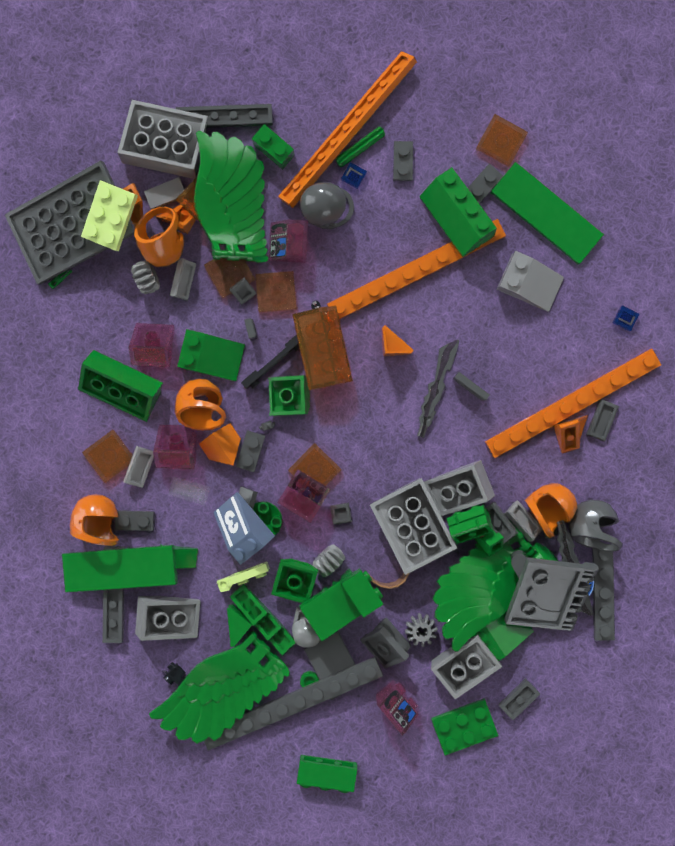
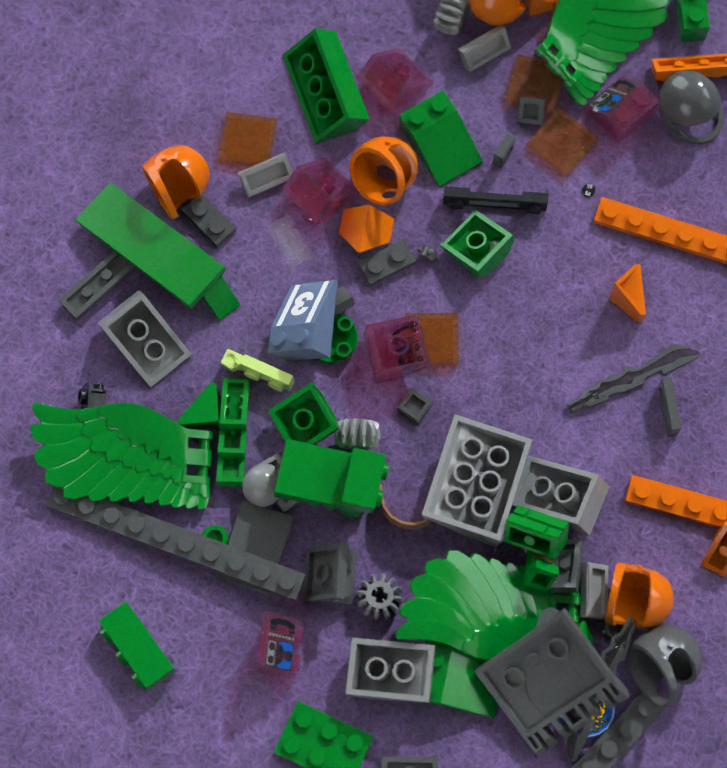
camera: 45 degrees right, 15 degrees down
(322, 347) = (556, 228): clear orange slope -> none

